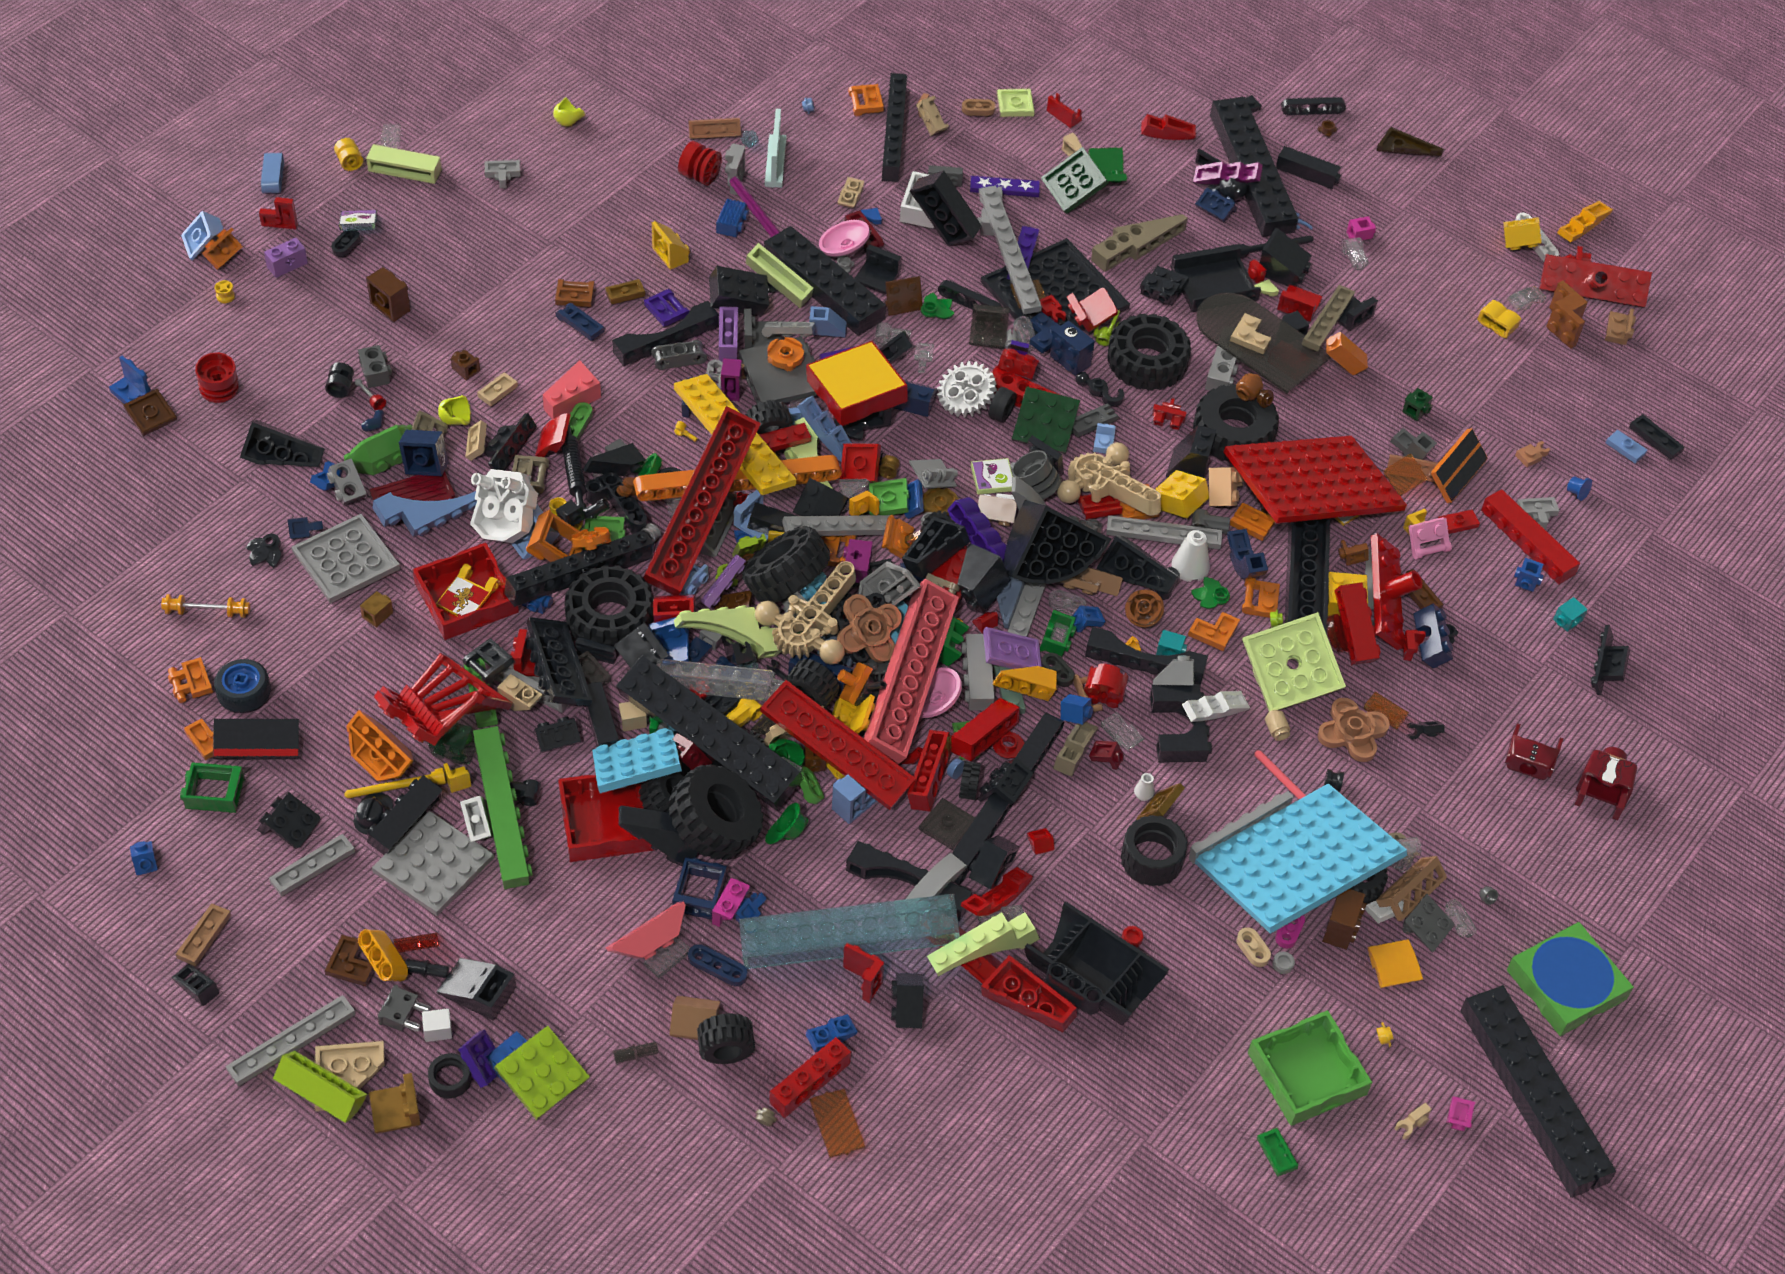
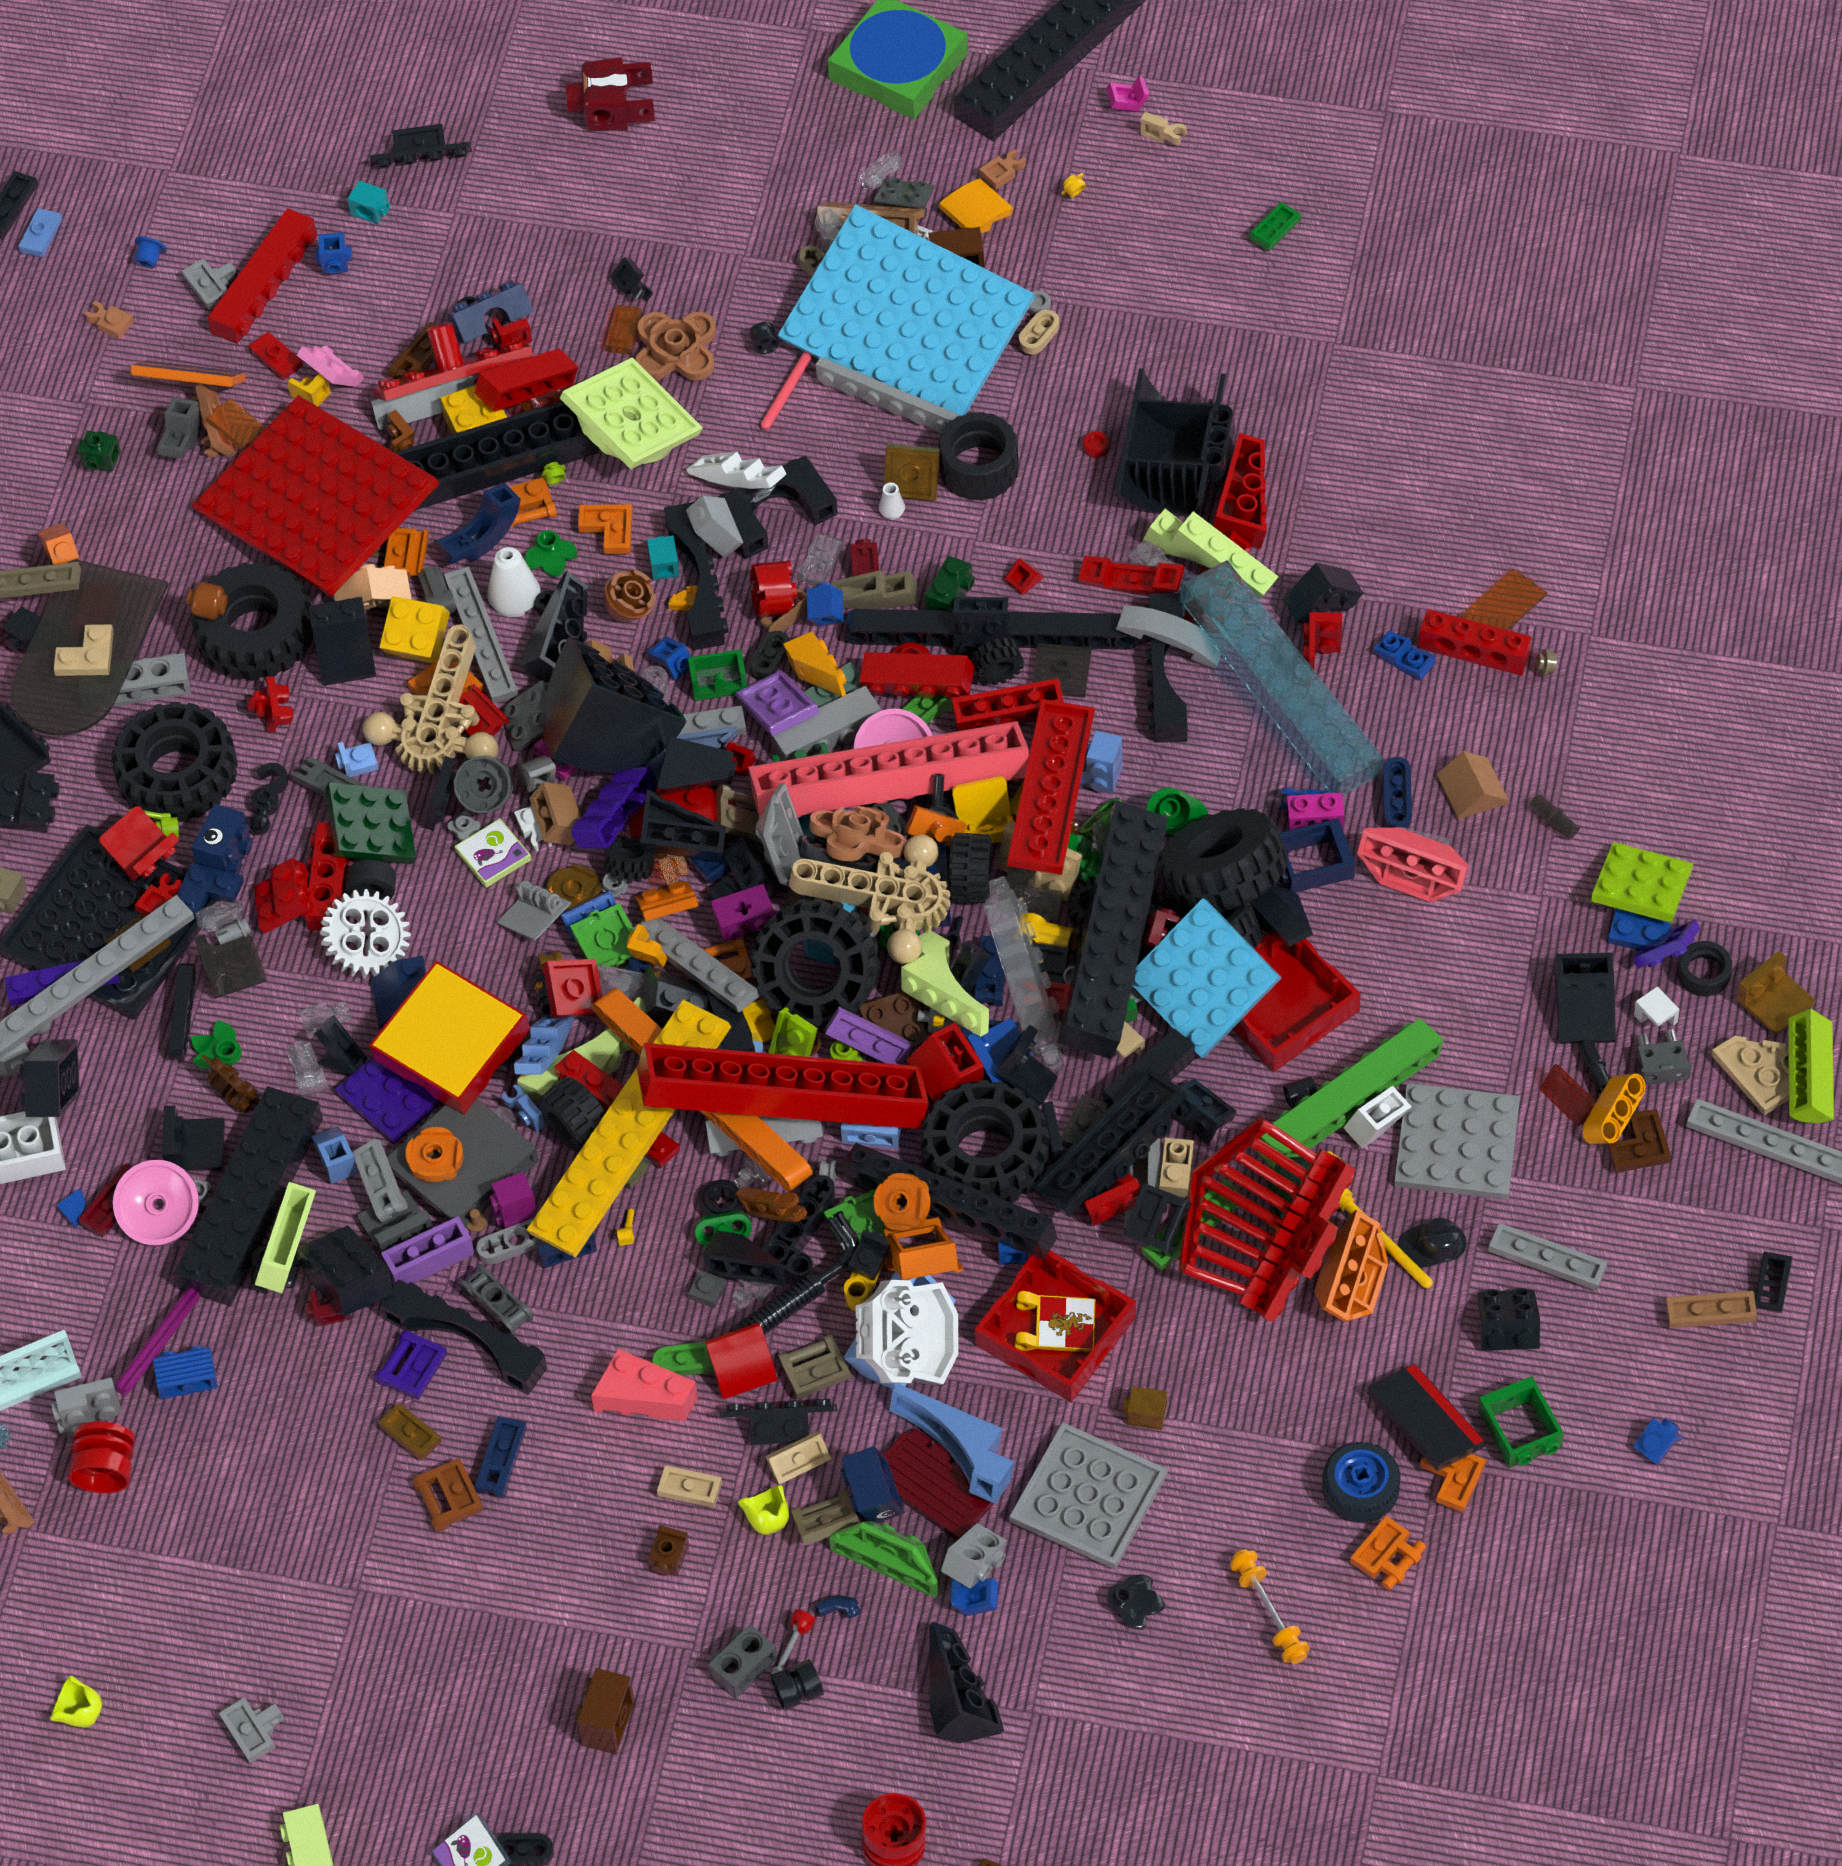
camera: 110 degrees left, 5 degrees up
(301, 527) = (1073, 1574): dark blue plate -> none
(404, 815) = (1423, 1193): black brick -> none
(669, 246) = (293, 1415): yellow slope -> none
(726, 1038) = (1492, 724): black tyre -> none
(851, 192) = (41, 1256): tan slope -> none
(955, 768) = (980, 686): medium blue tile -> none
(993, 859) = (1091, 589): black brick -> none
(1021, 348) = (250, 912): dark purple tile -> none
(1051, 786) = (951, 581): none -> dark green brick
(1265, 398) = (216, 577): reddish brown plate -> none
(1277, 725) = (716, 415): tan brick -> none
(1309, 1068) = (1160, 231): bright green tile -> none
(1424, 995) = (1001, 171): none -> nougat plate
(1490, 892) = (832, 158): dark grey hinge -> none
(1531, 756) = (606, 174): dark red piece -> none

